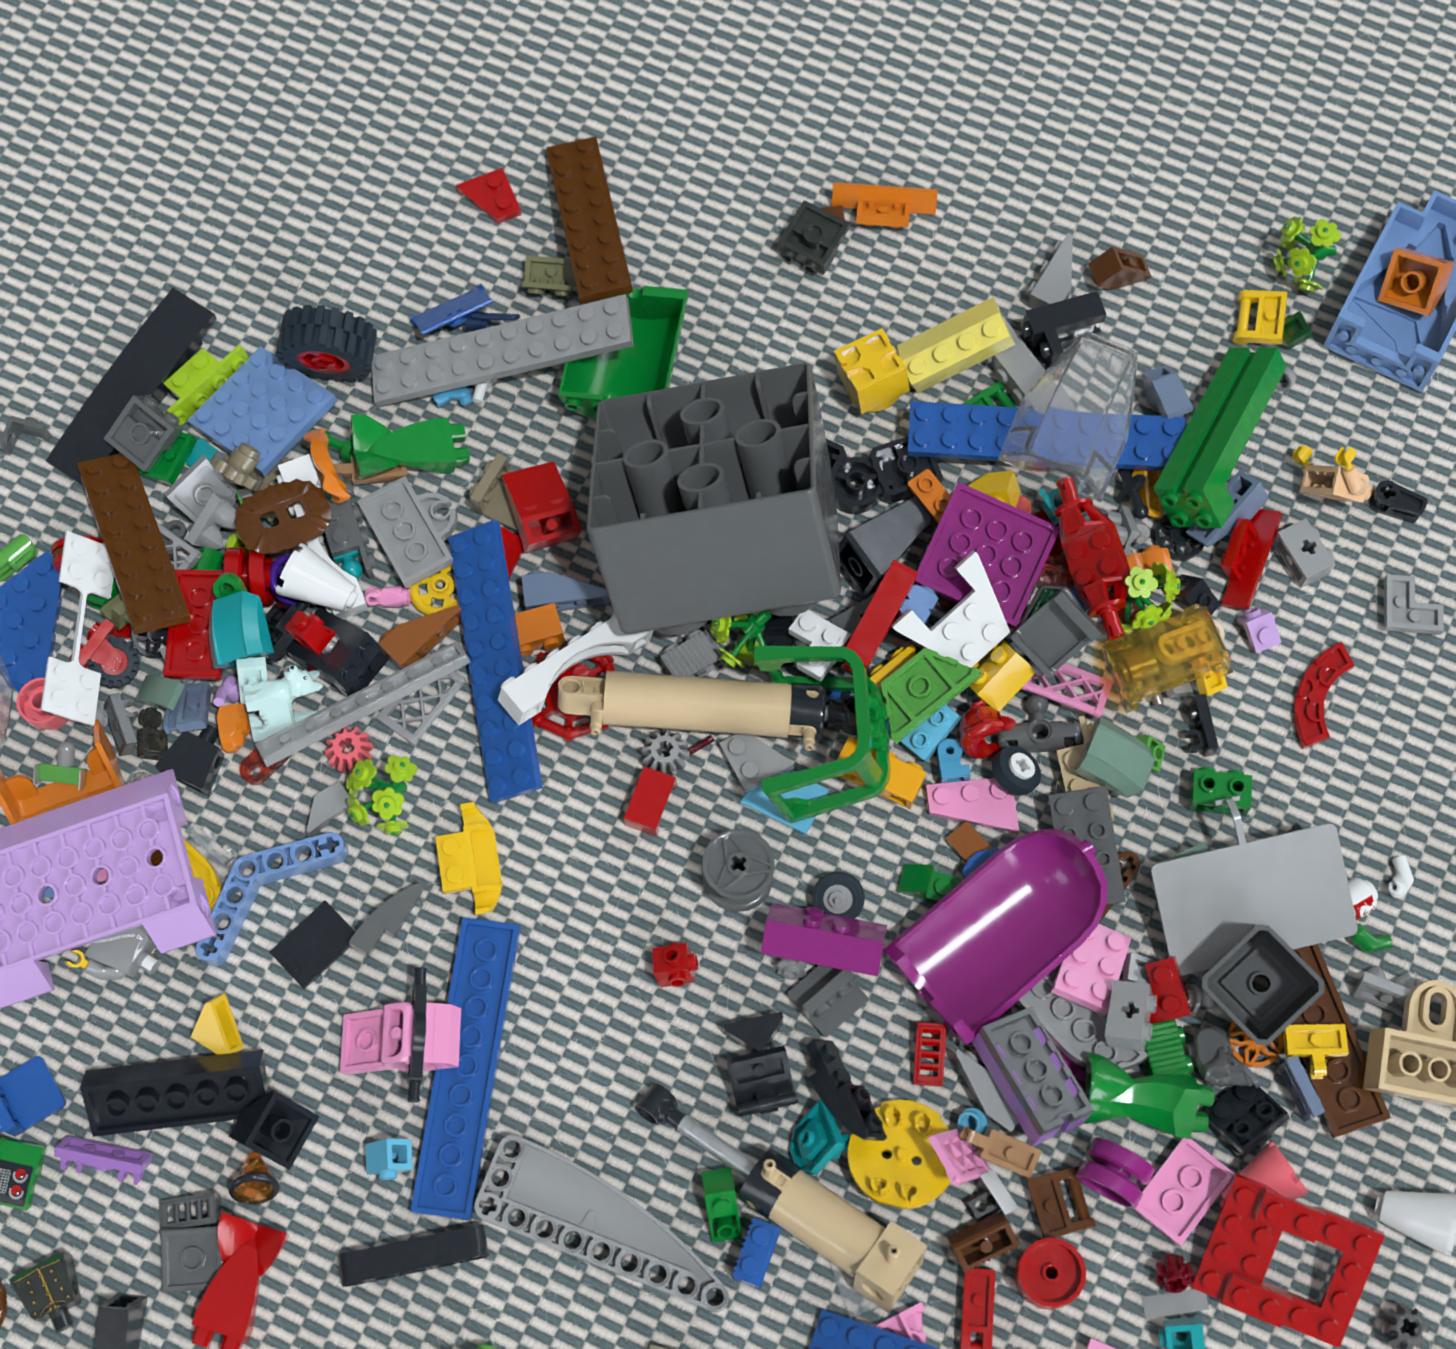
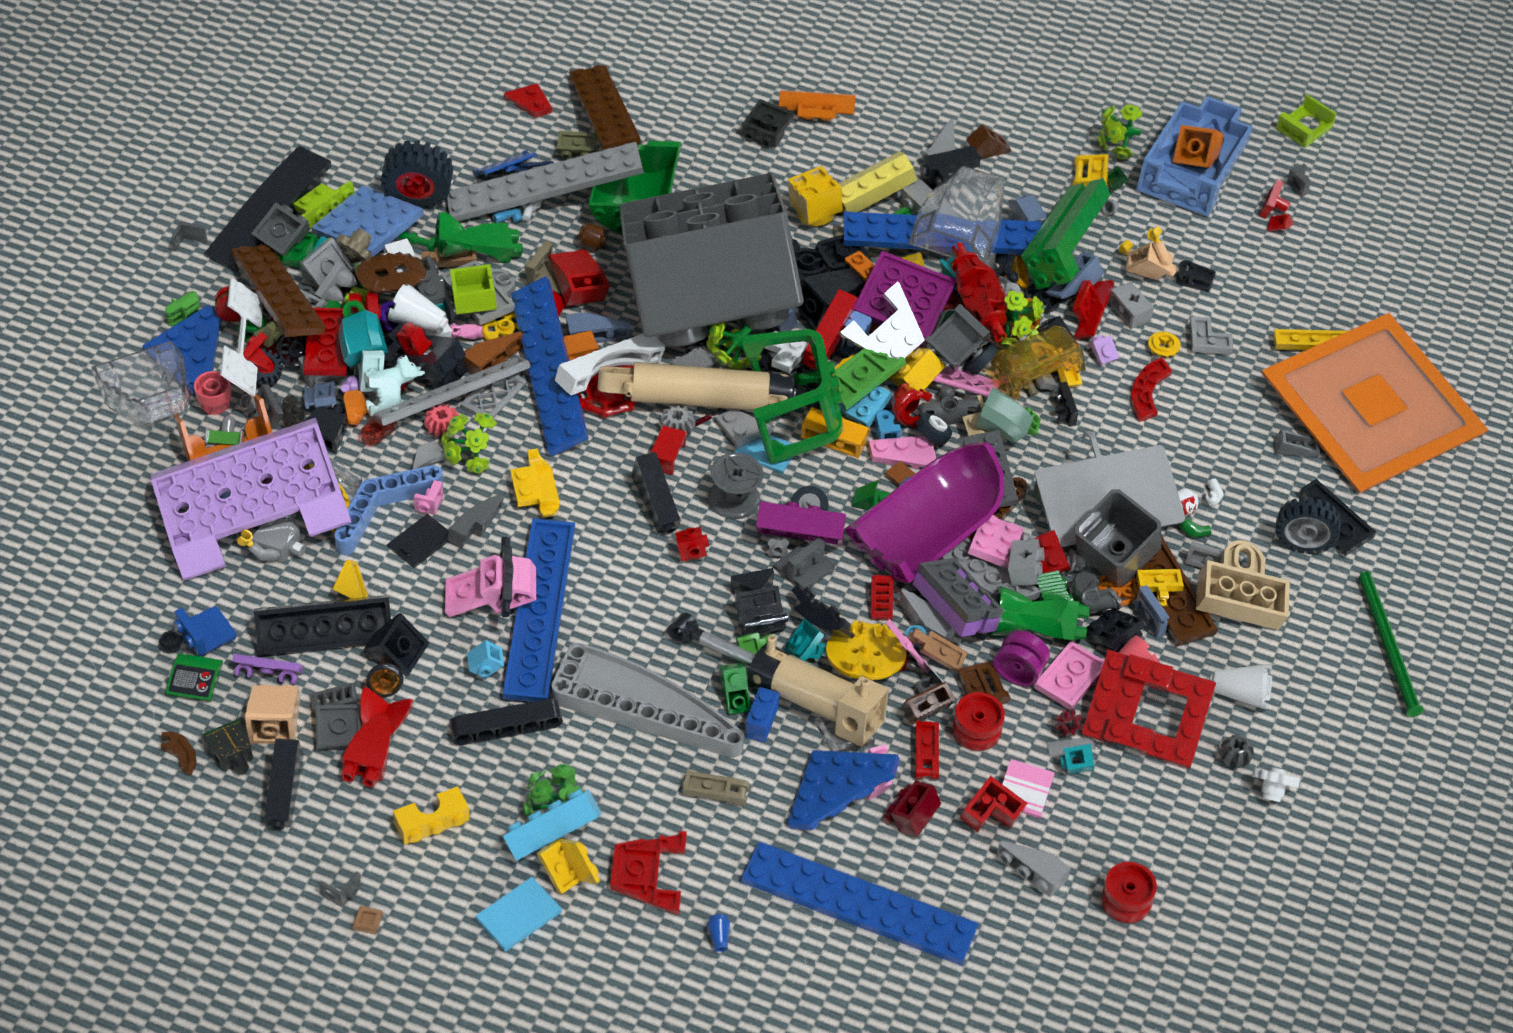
camera: 10 degrees left, 20 degrees down
(105, 1238) = (272, 713): none -> light nougat slope
(160, 692) = (298, 383): sand green slope -> none
(326, 472) = (421, 249): orange piece -> none
(332, 880) = (431, 500): none -> bright pink bracket
(394, 541) = (473, 289): none -> lime piece
(564, 436) = (592, 236): none -> reddish brown head
(631, 883) = (655, 493): none -> black slope
(748, 1133) = (752, 642): none -> bright green plate
(1091, 654) = (982, 357): none -> black wheel
(1208, 786) = (1079, 448): green brick -> none
(1346, 607) = (1164, 338): none -> yellow gear

